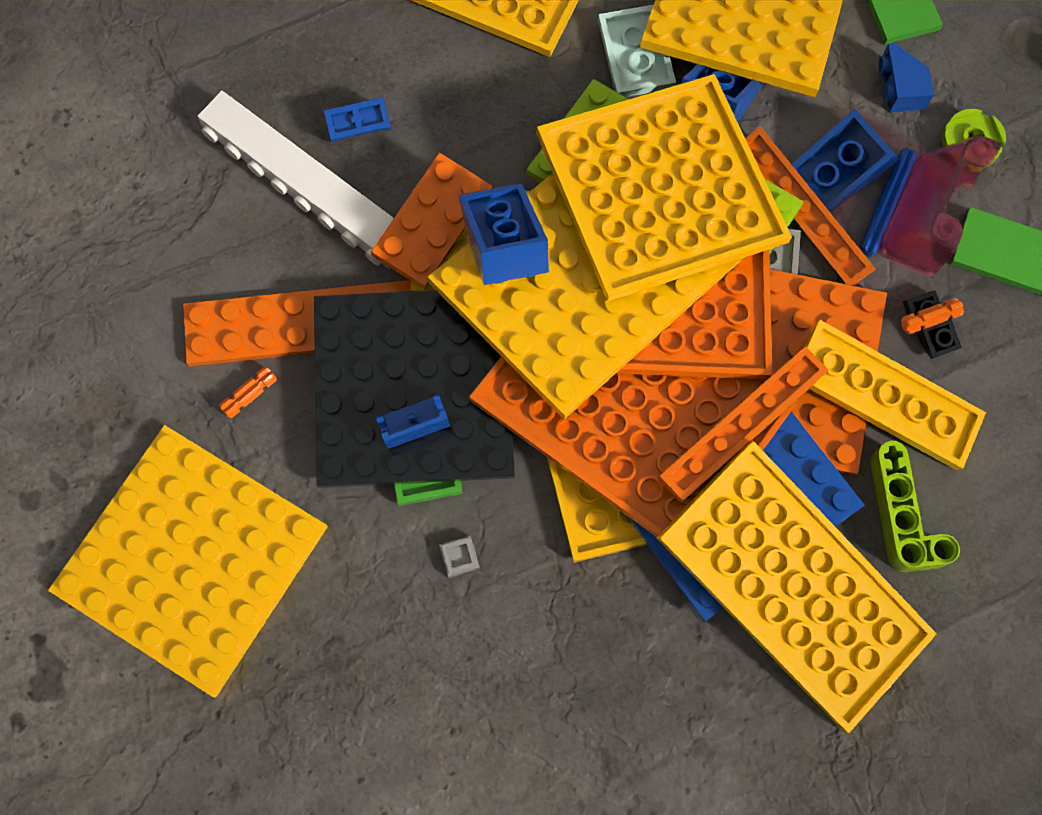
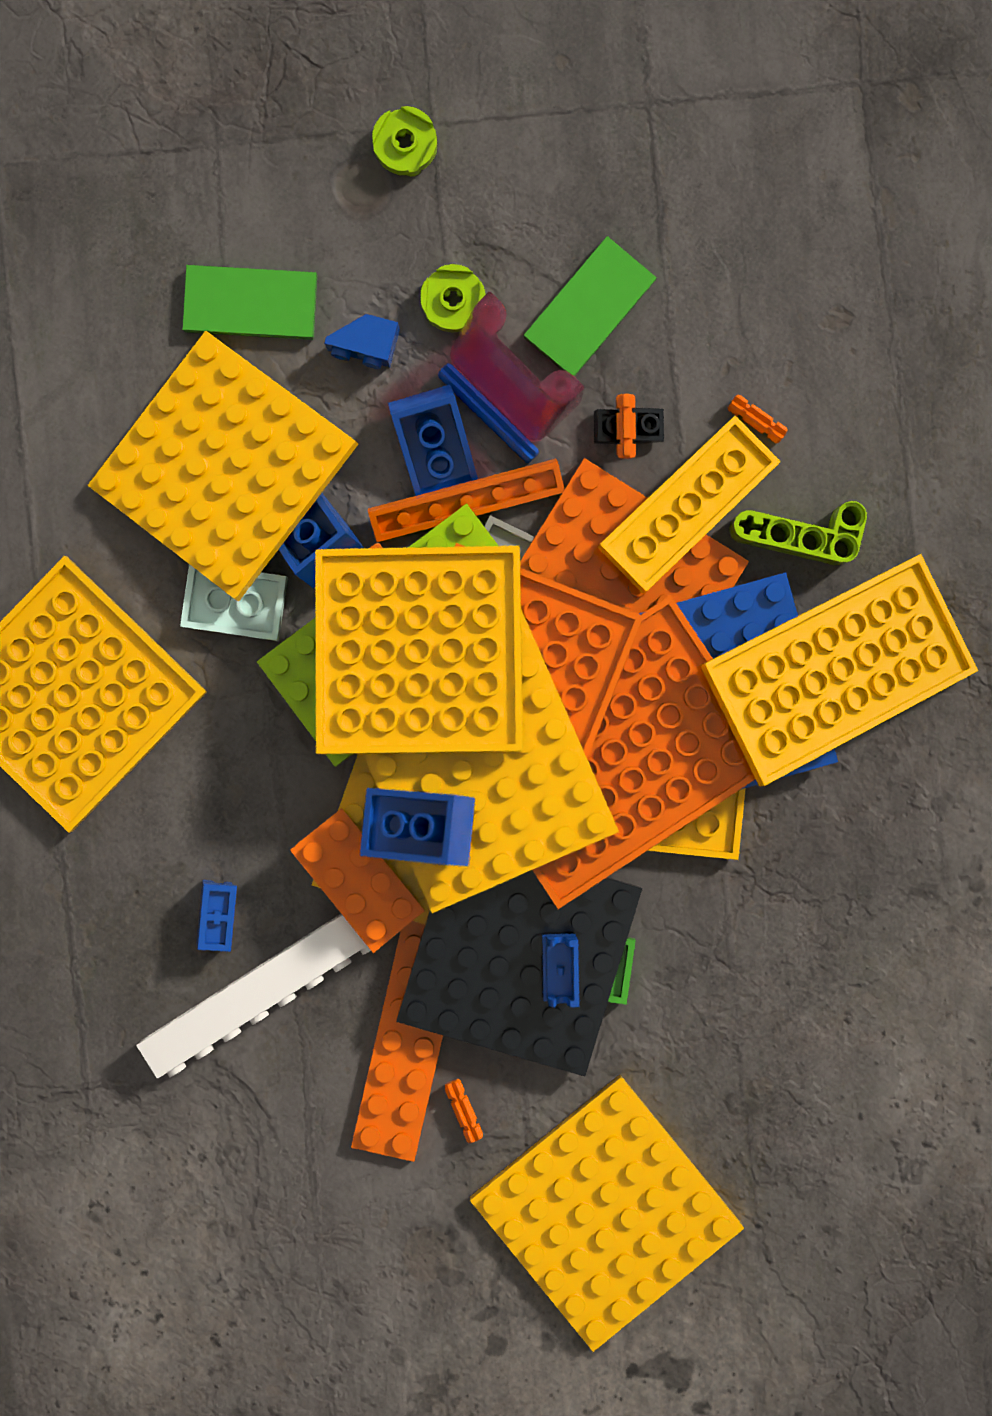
camera: 70 degrees left, 15 degrees up
(459, 556) = (693, 962): light grey tile -> none
(743, 424) = (681, 662): orange plate -> none
(991, 436) = (757, 419): none -> orange axle

